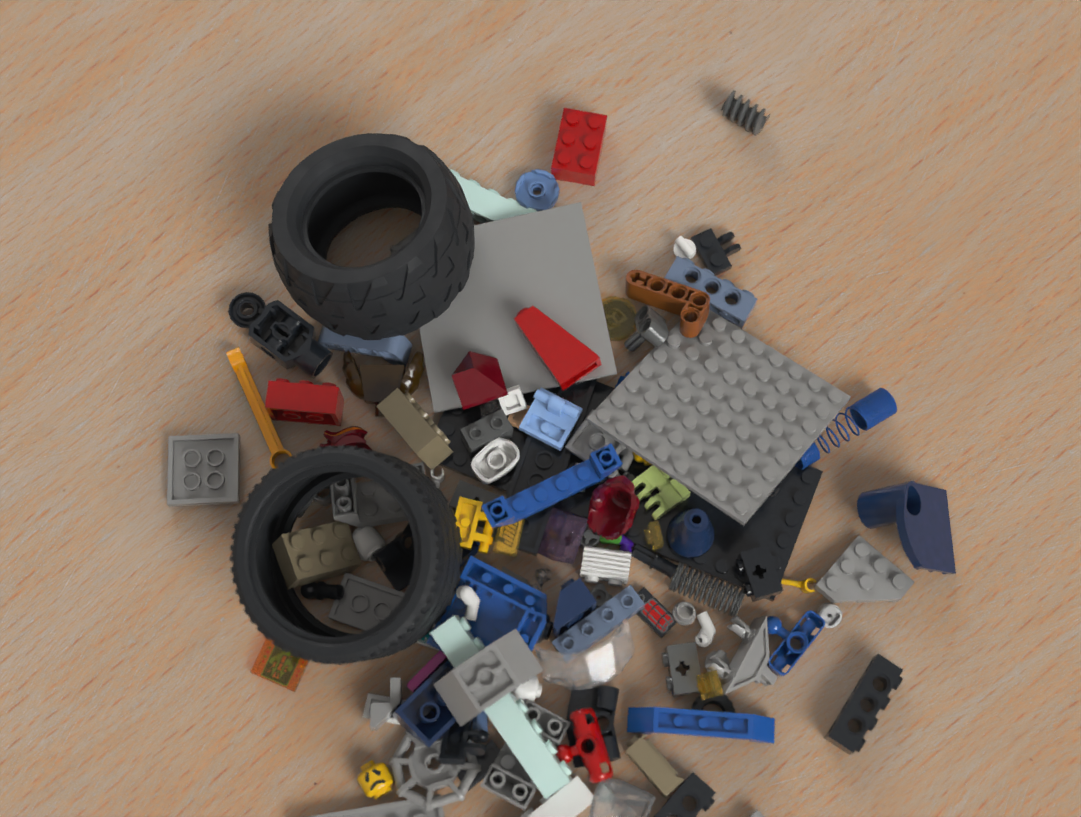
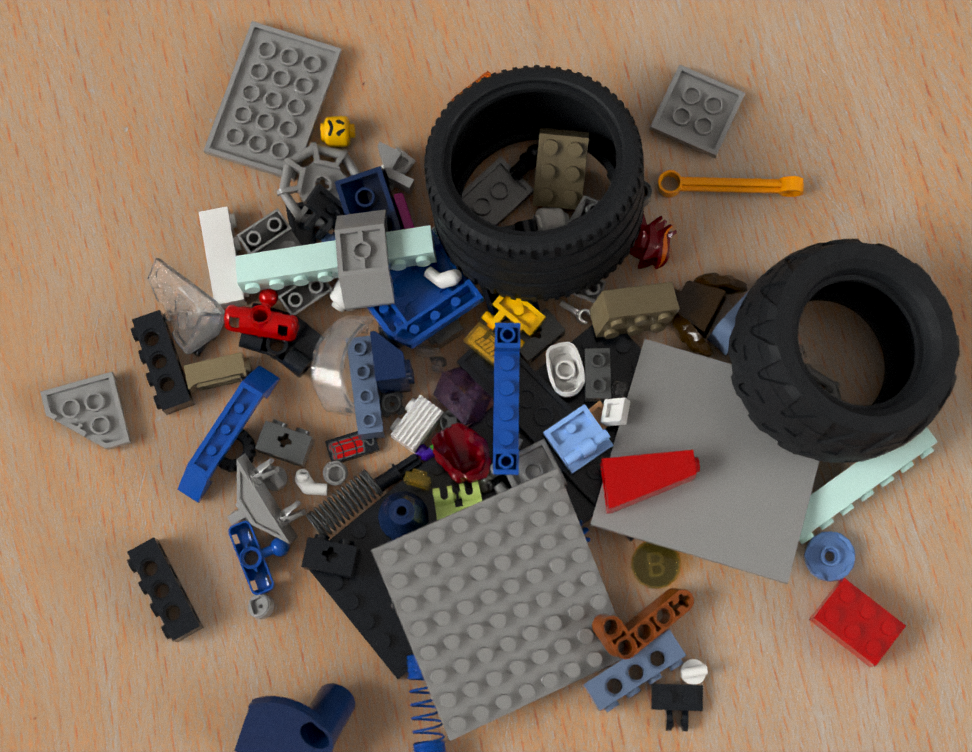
camera: 120 degrees right, 5 degrees up
(280, 333) = (795, 230): black brick -> none
(304, 402) = (714, 225): red brick -> none
(478, 380) = (649, 388): dark red slope -> none
(649, 327) = (624, 587): dark grey beam -> none
(709, 685) = (254, 452): clear yellow plate -> none
(799, 584) = (304, 596): yellow hand -> none
(863, 577) = (279, 658): light grey plate -> none

